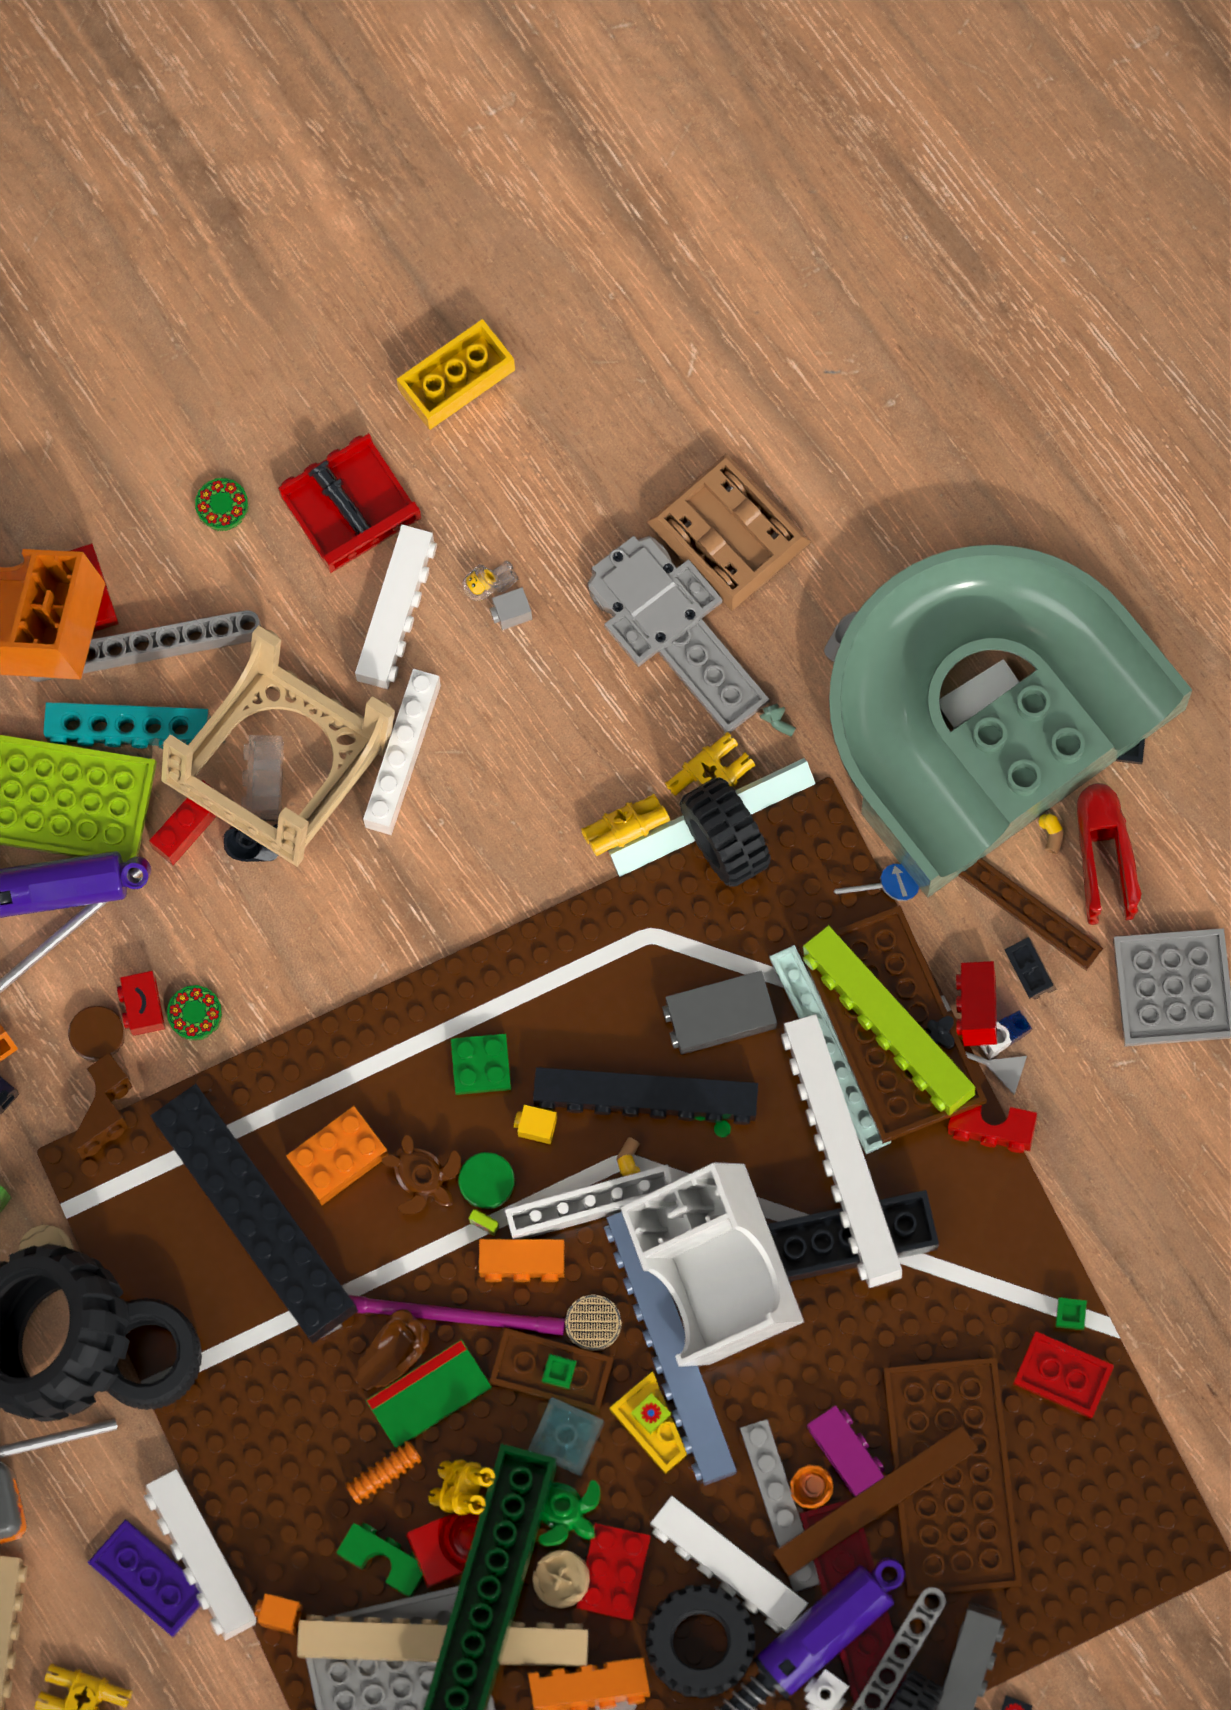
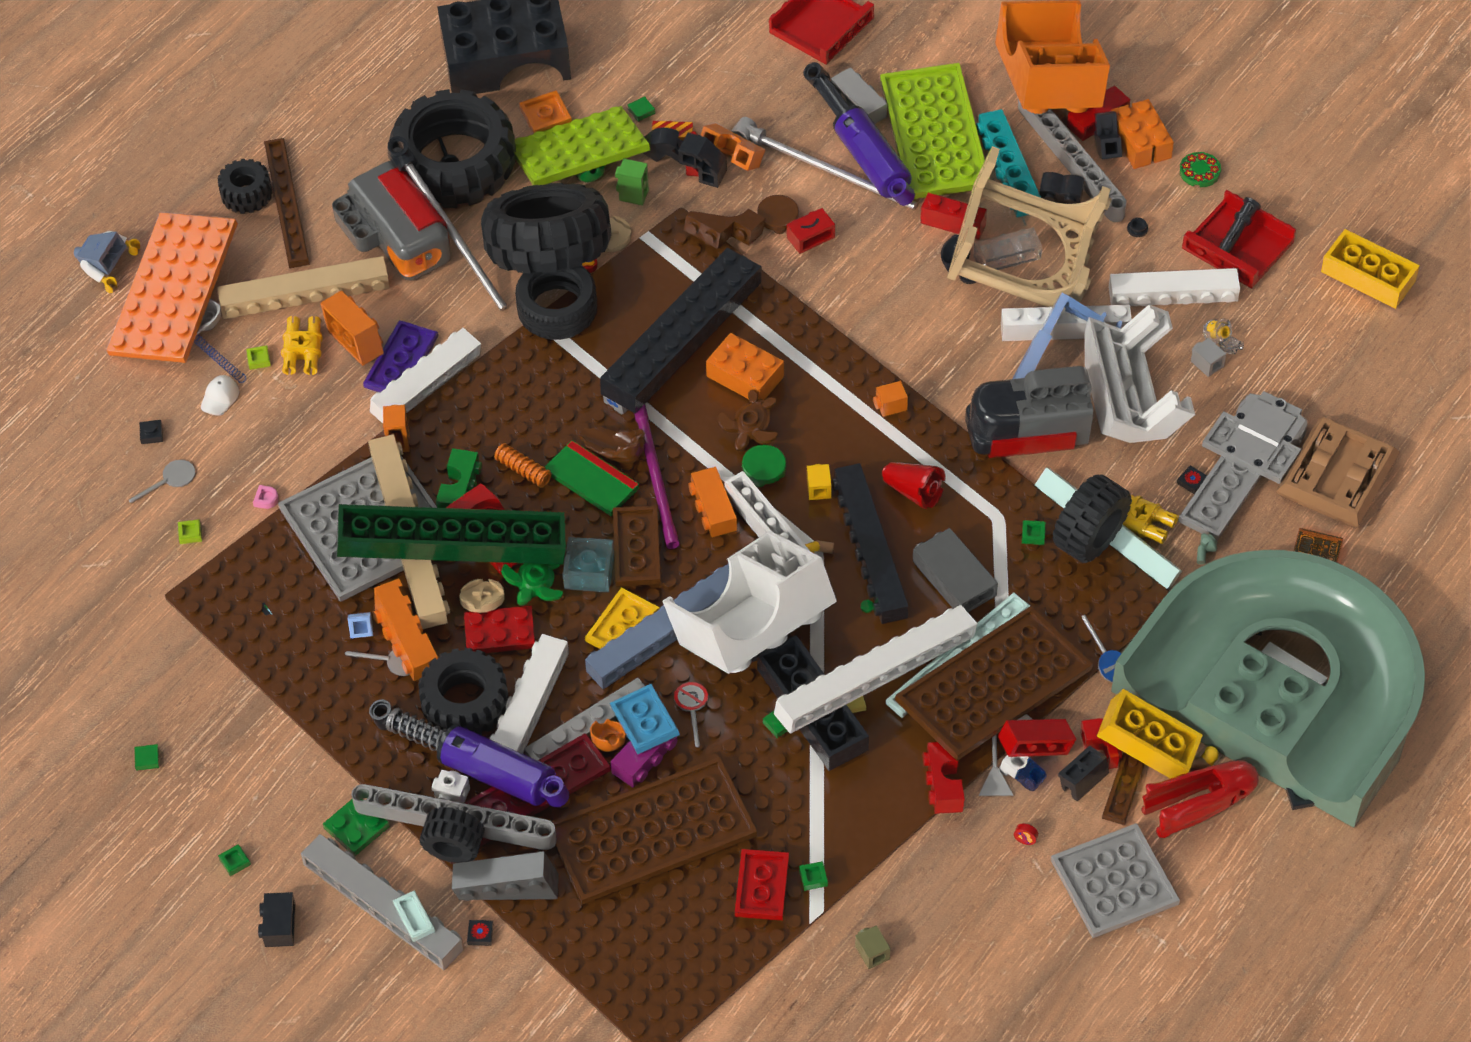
camera: 70 degrees right, 20 degrees down
(93, 1626) = (352, 327): none -> orange brick
(137, 594) = (1106, 136): none -> black brick
(144, 551) = (1140, 132): none -> orange piece
(194, 679) = (1061, 188): none -> black brick
(194, 1013) = (817, 264): tile -> none
(284, 612) = (1137, 227): none -> black plate
(436, 793) = (1043, 336): none -> medium blue hinge
(445, 997) = (891, 398): none -> orange brick
(461, 1487) = (525, 502): yellow pin -> none
(480, 1064) = (851, 438): green plate -> none
(484, 1222) = (732, 467): lime tile -> none
(529, 722) = (1123, 383): none -> white wedge
(538, 845) = (1031, 414): none -> piece
(559, 1371) = (636, 546): green tile -> none
(580, 1014) = (916, 482): none -> red cone
(593, 1323) = (683, 562): tile -> none
(625, 824) = (1068, 467): yellow pin -> none
(650, 1413) = (625, 612): lime tile -> none
(675, 696) = (1191, 479): none -> black tile
(695, 903) = (1033, 532): none -> green plate
(784, 1374) = (691, 697): none -> piece
(813, 1438) = (644, 719): none -> dark azure tile
(822, 600) = (1318, 544): none -> clear orange tile
(851, 1285) = (774, 725): none -> green plate
(875, 1501) = (612, 778): reddish brown tile -> none
(888, 1020) = (991, 672): lime brick -> none
(940, 1032) = (1000, 710): black piece -> none
(991, 926) = (1089, 732): none -> red brick
(1020, 880) = (1149, 735): none -> yellow brick
(1087, 1060) = (1026, 834): none -> red tile
(1174, 1279) = (872, 946): none -> olive brick

